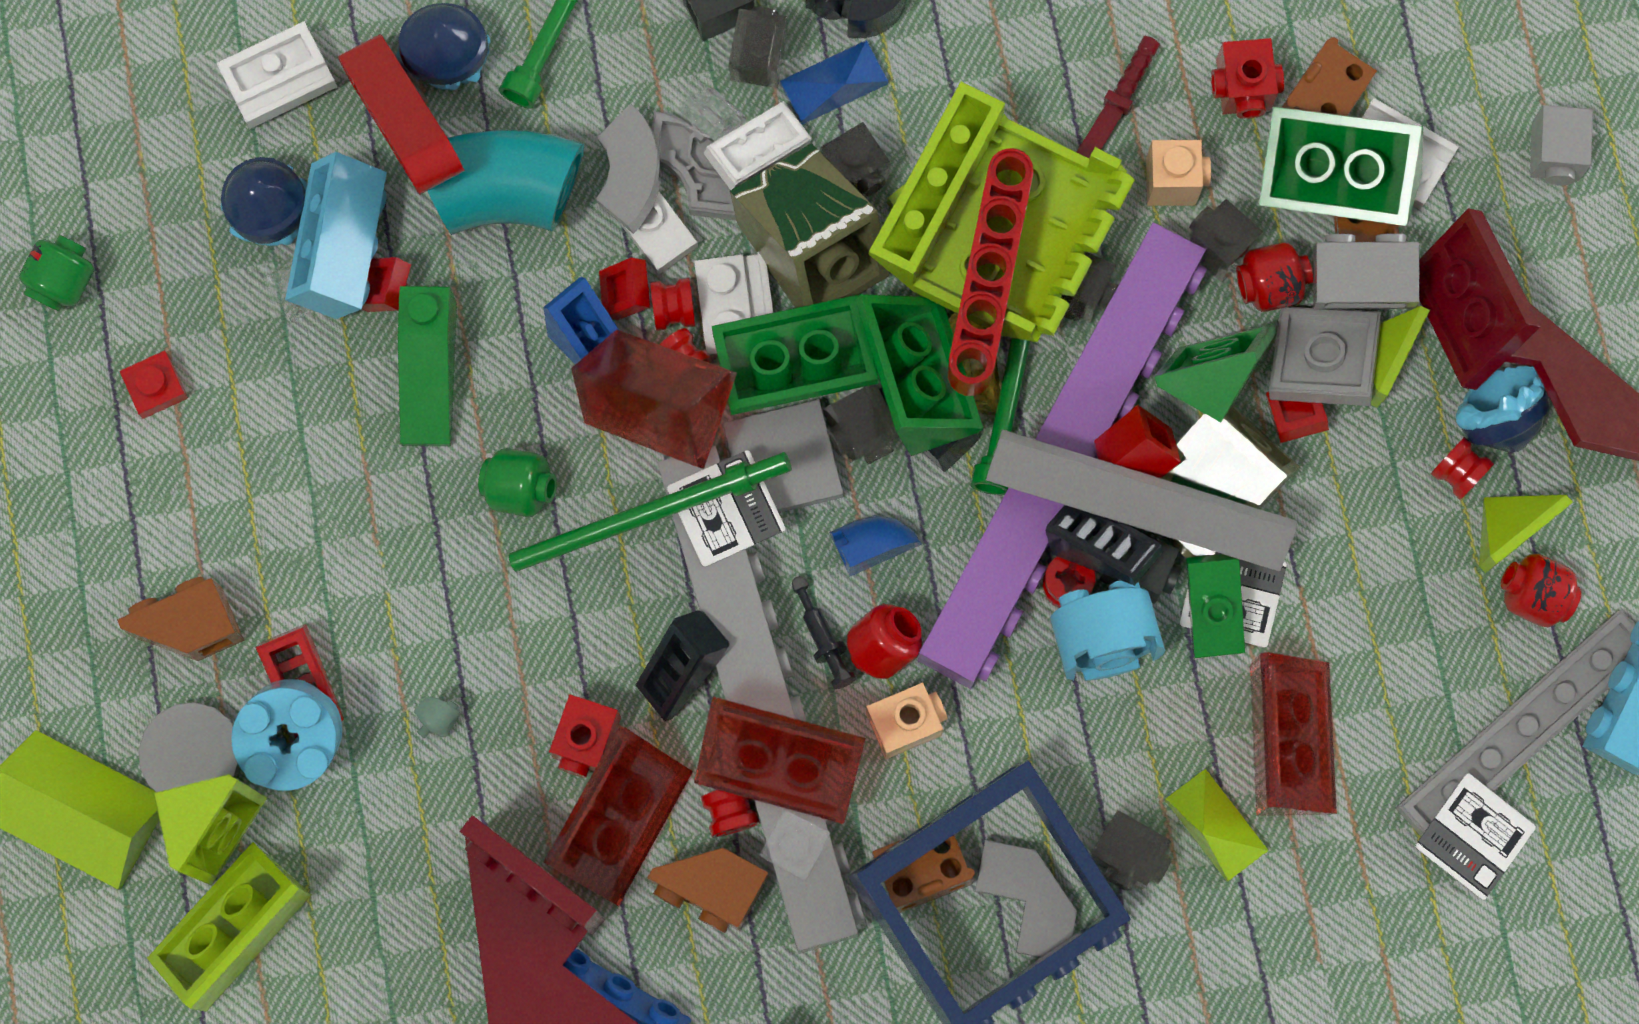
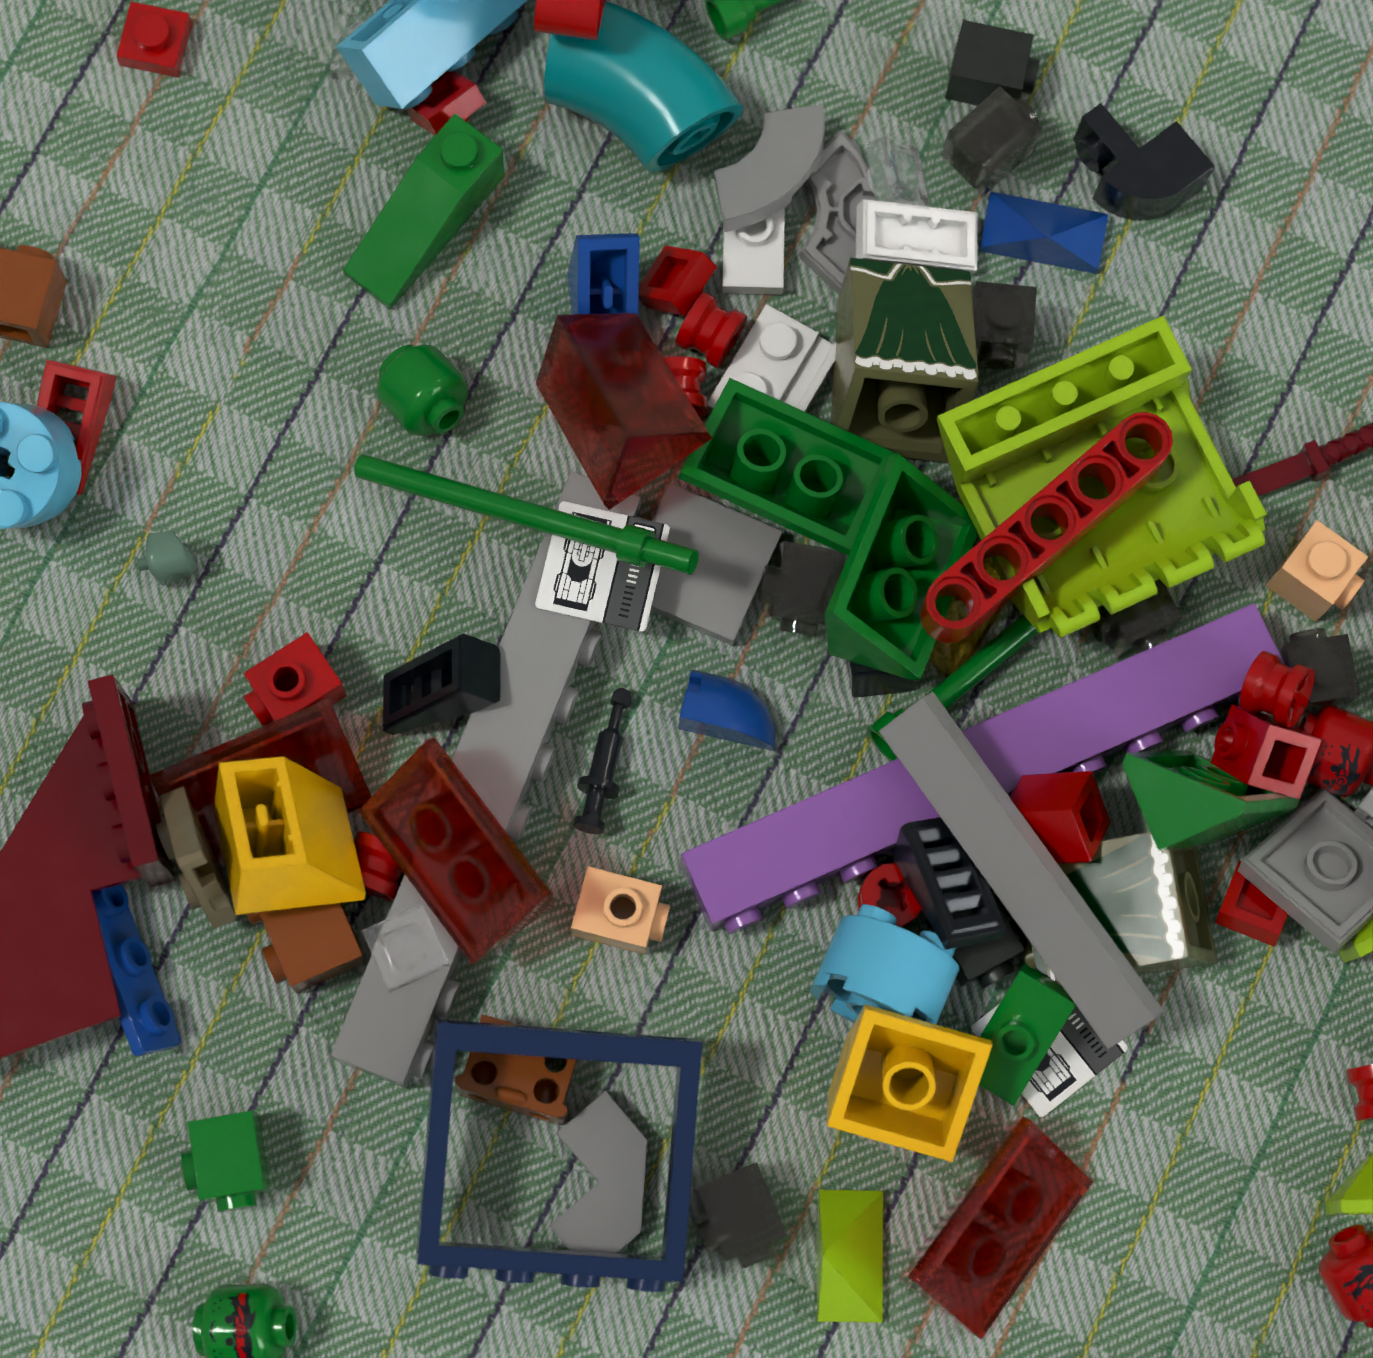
camera: 30 degrees right, 0 degrees up
(598, 884) = (201, 874): none -> dark tan wing
(661, 836) = (284, 837): none -> yellow slope
(884, 641) = (658, 816): red head -> none
(1171, 688) = (906, 1082): none -> yellow slope
(1211, 266) = (1277, 689): none -> red wheel
(1231, 311) = (1265, 752): none -> red brick

